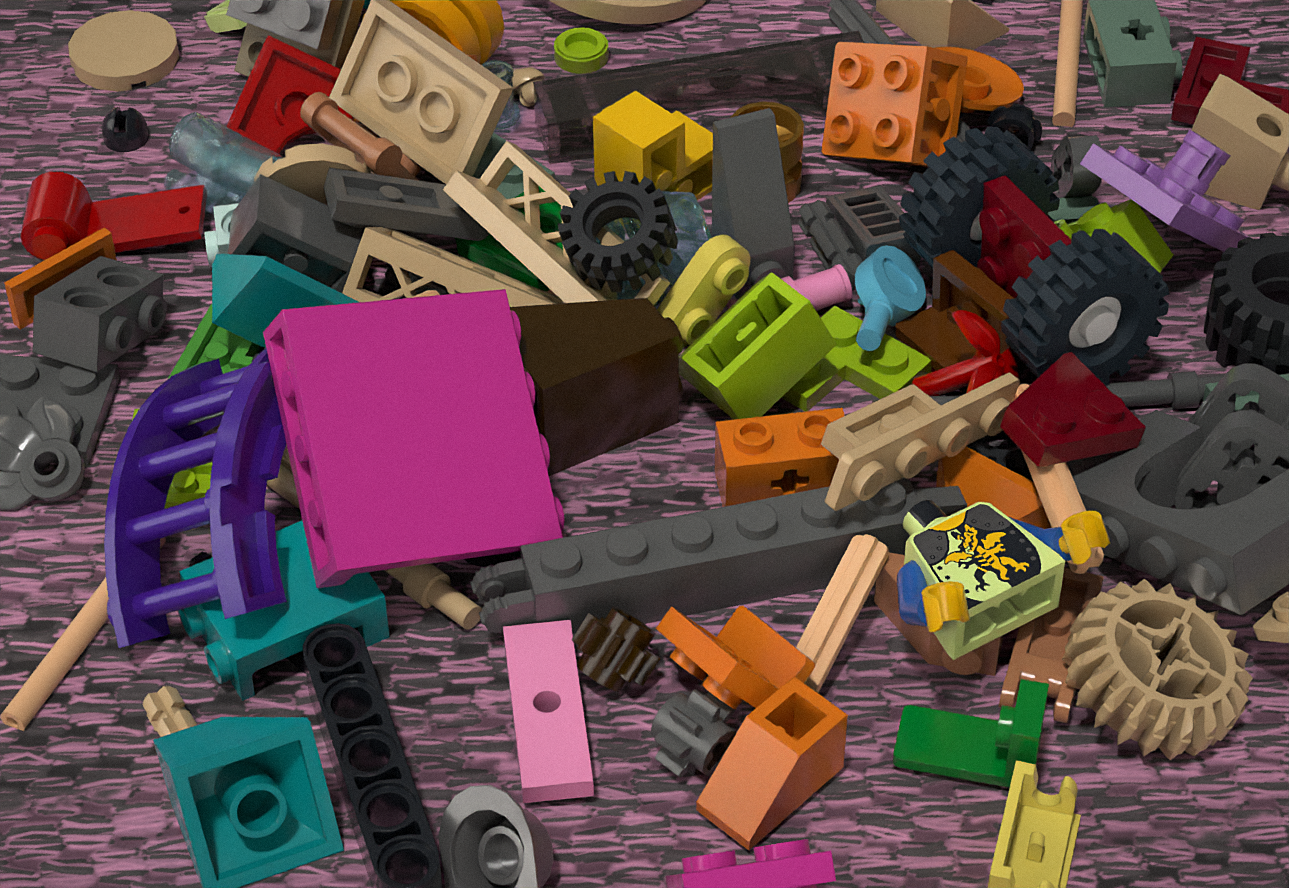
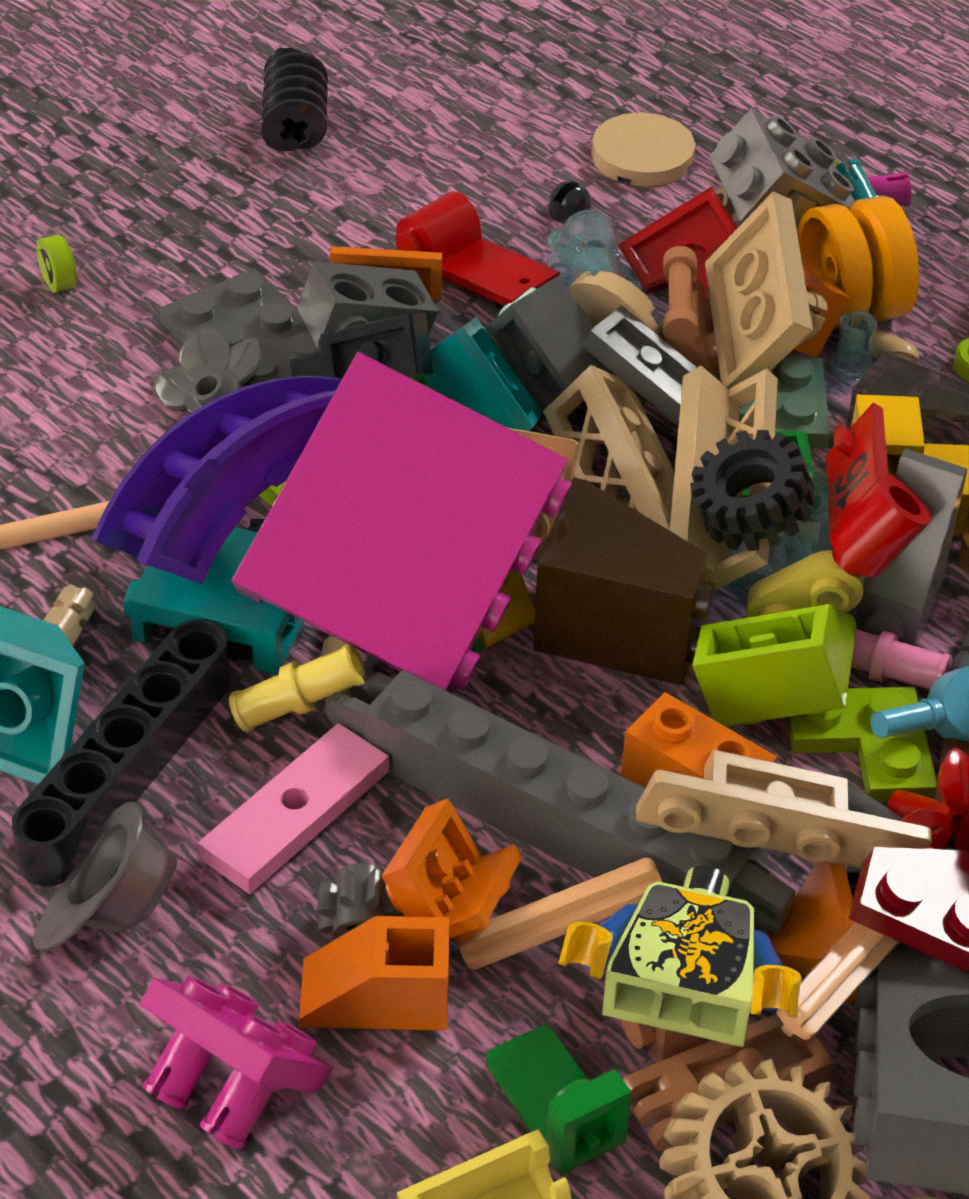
camera: 45 degrees right, 0 degrees up
(174, 340) = (394, 342): none -> black hinge
(445, 624) = (297, 688): none -> light yellow pin
(615, 649) = (388, 801): dark brown gear -> none
(707, 182) = (868, 508): none -> red door

